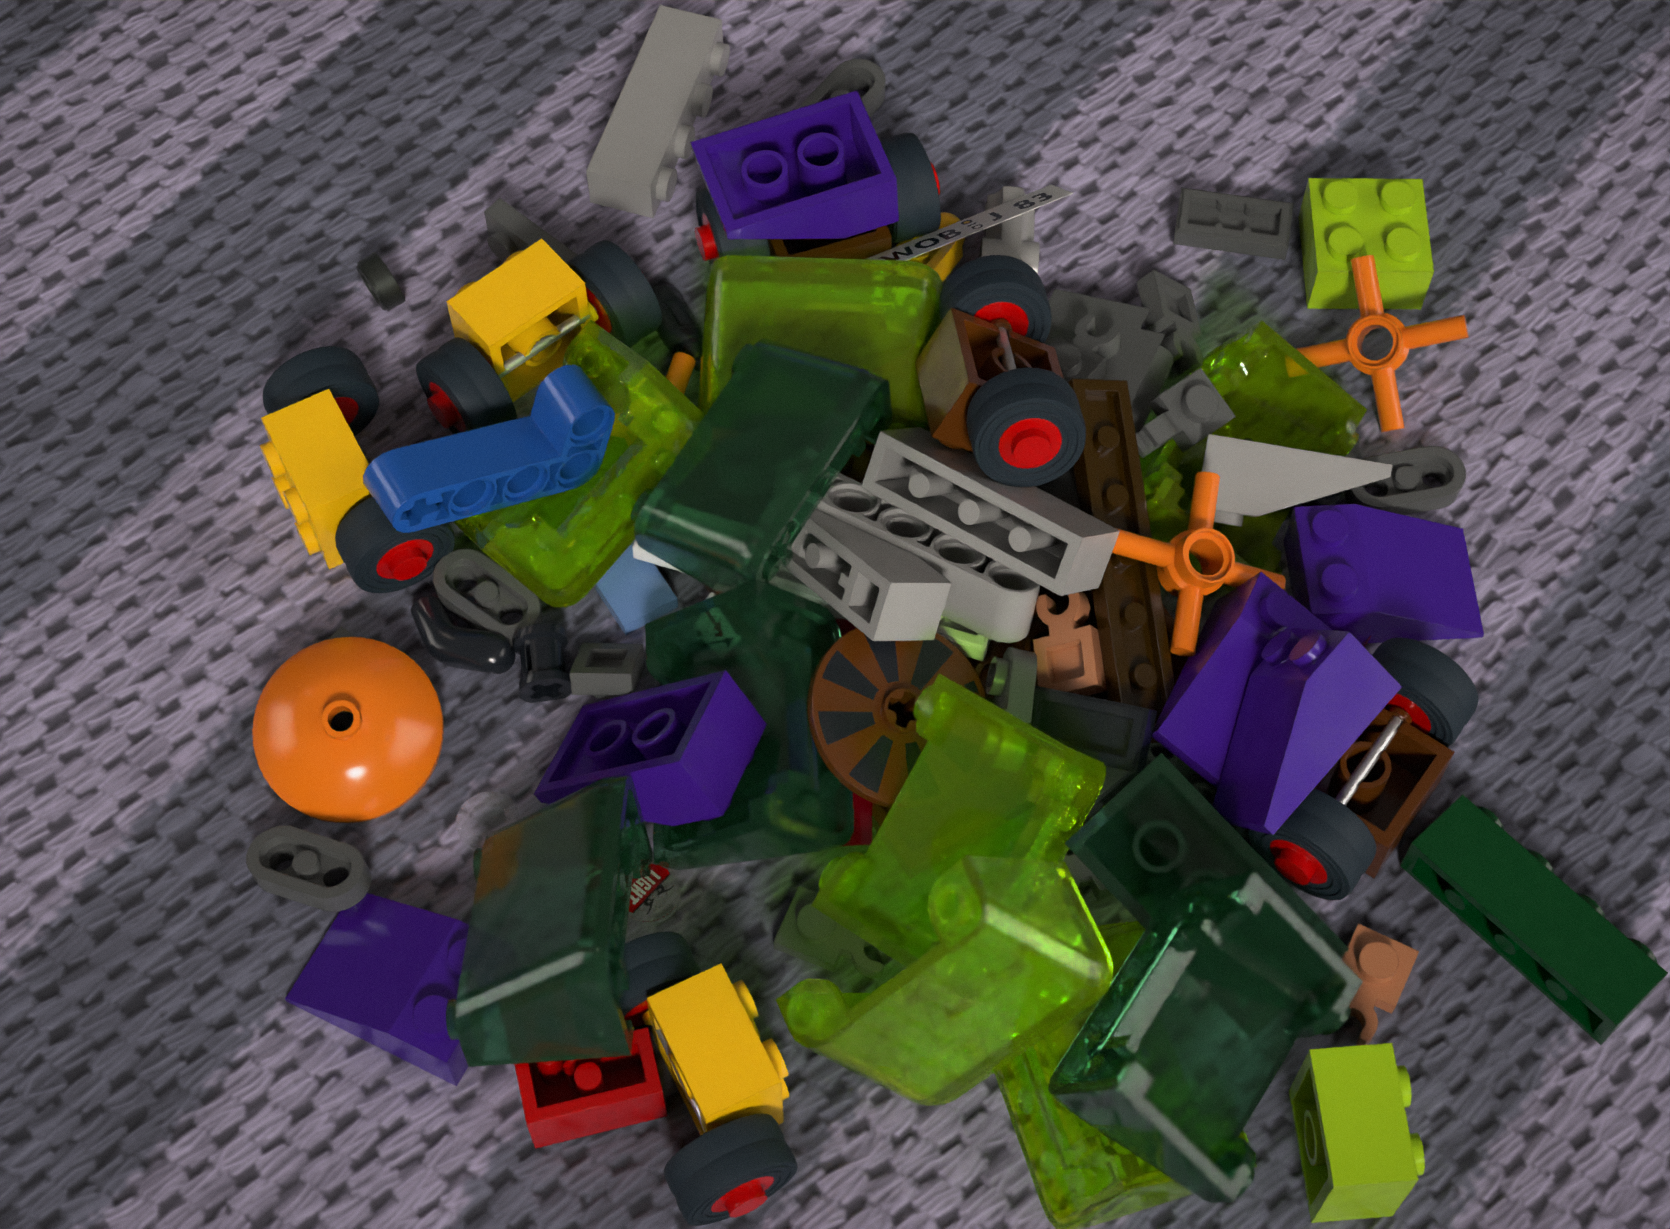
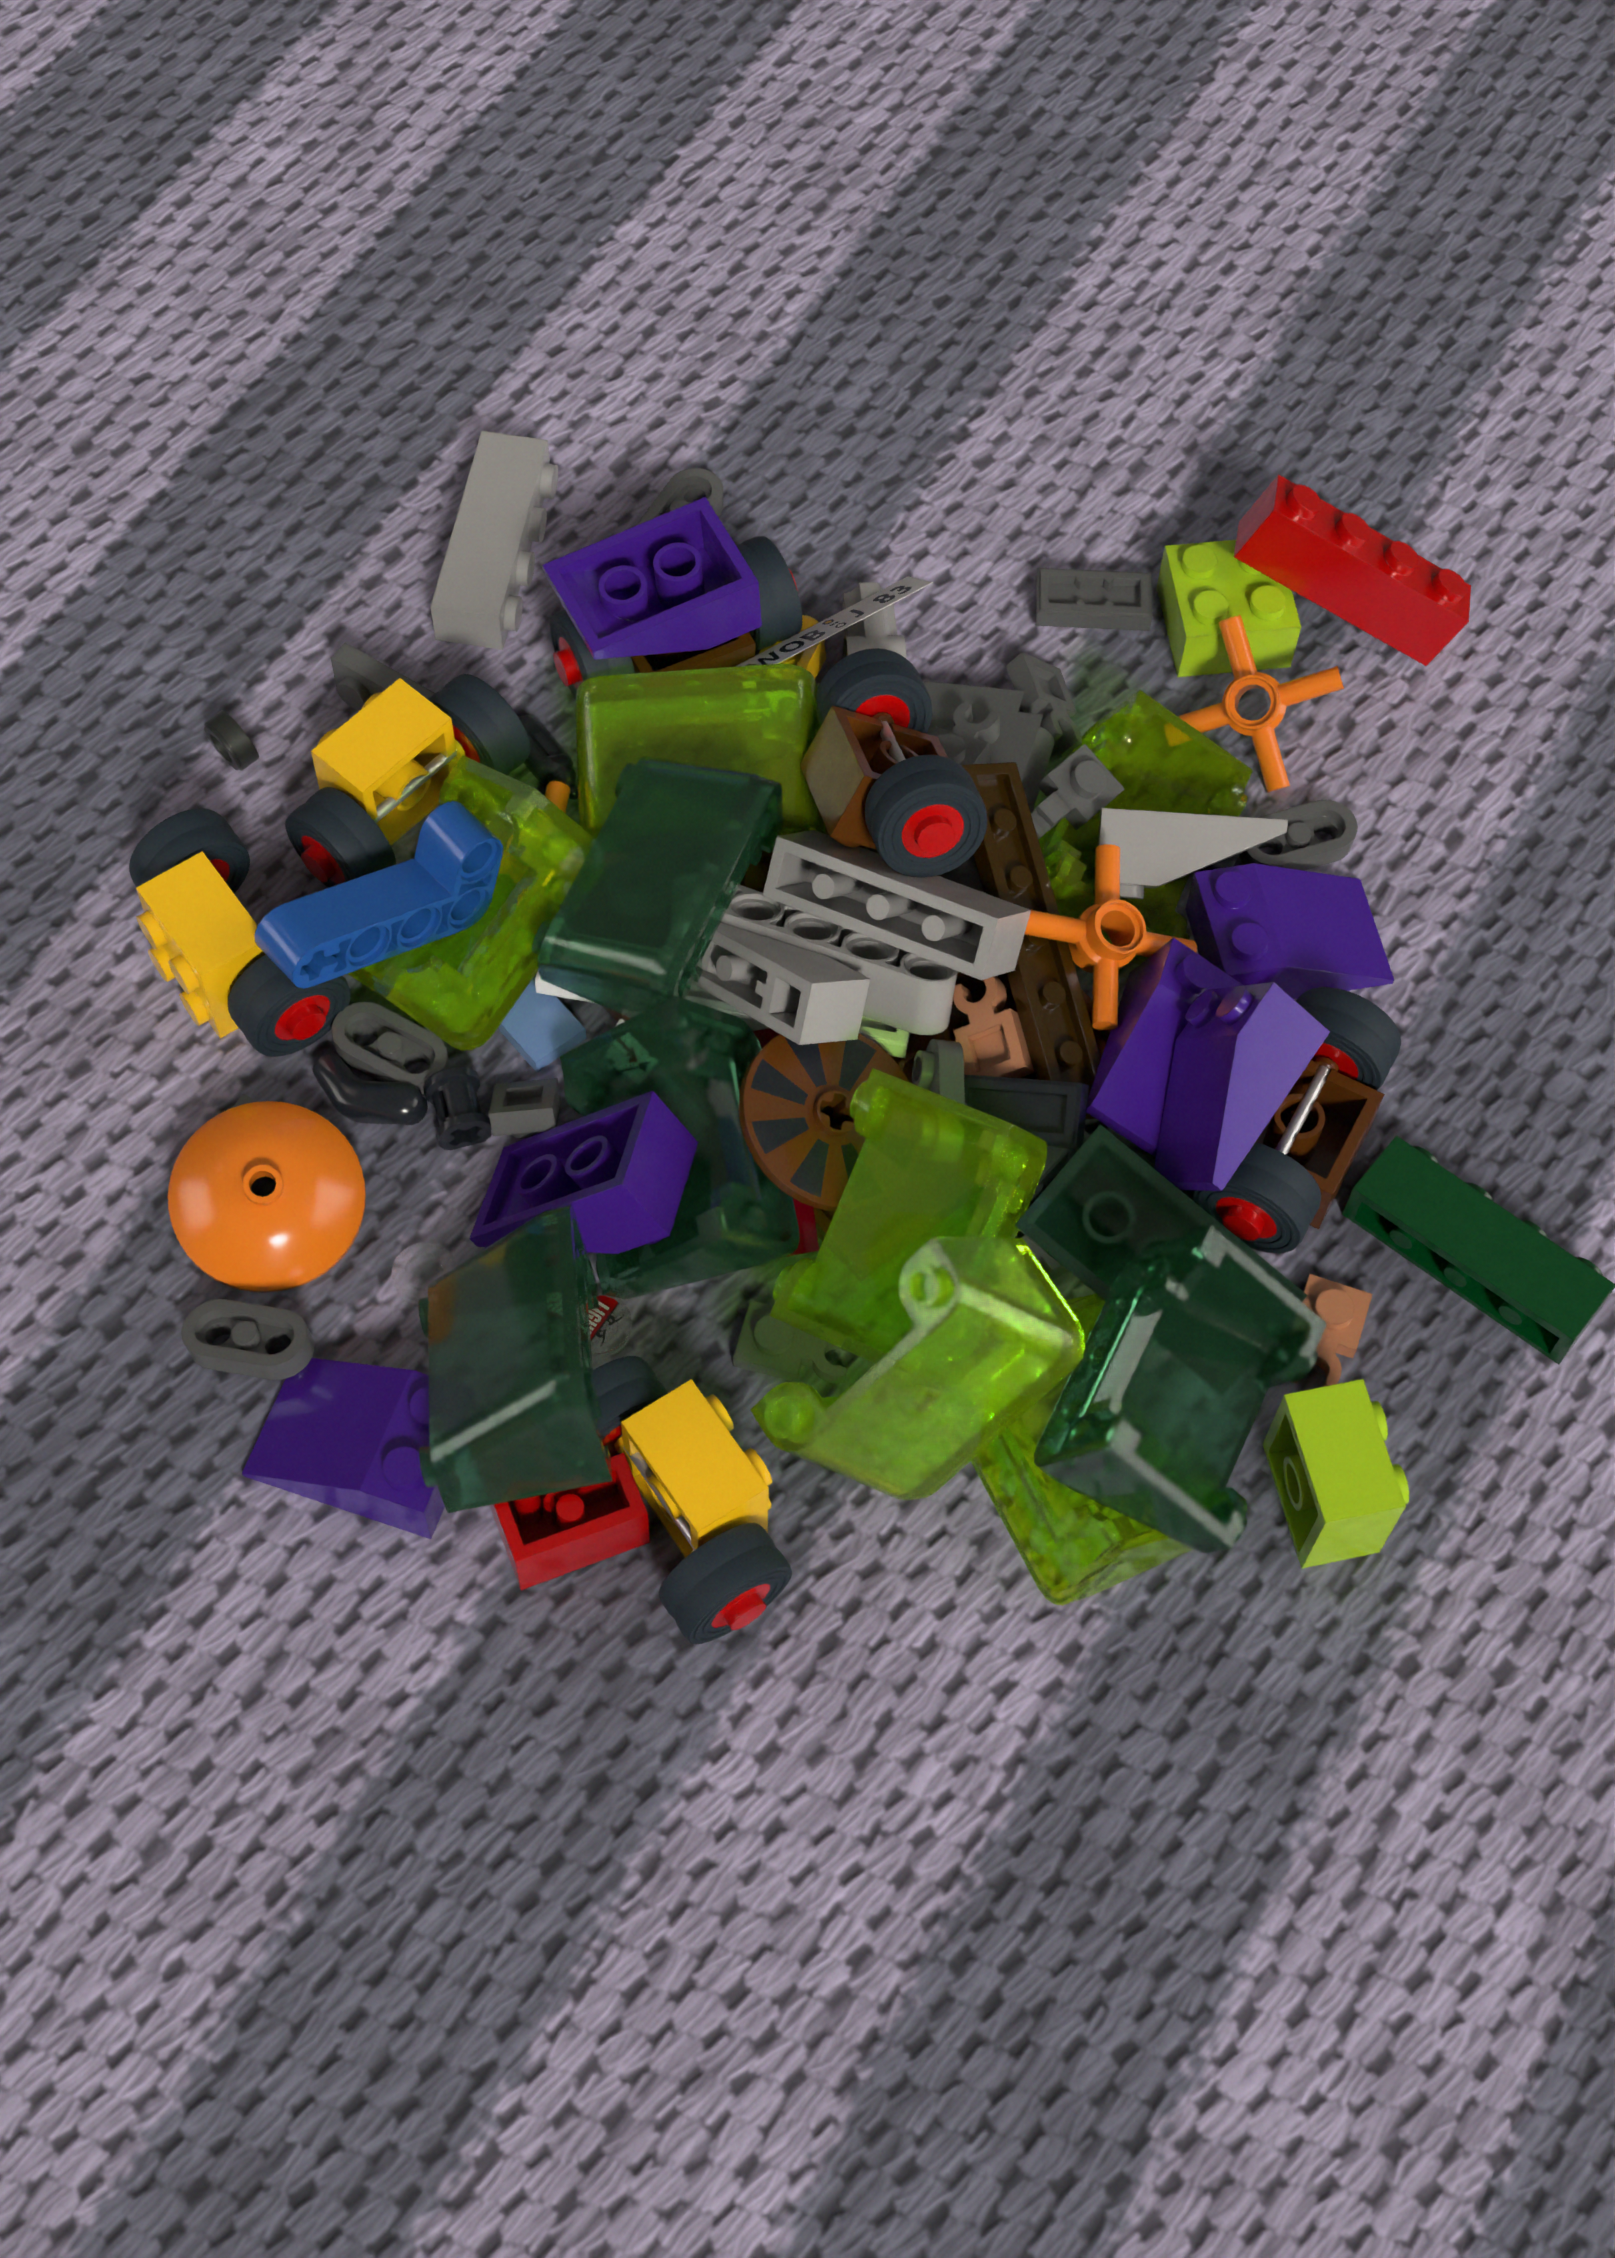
camera: 10 degrees left, 0 degrees up
(1493, 220) = (1353, 570): none -> red brick

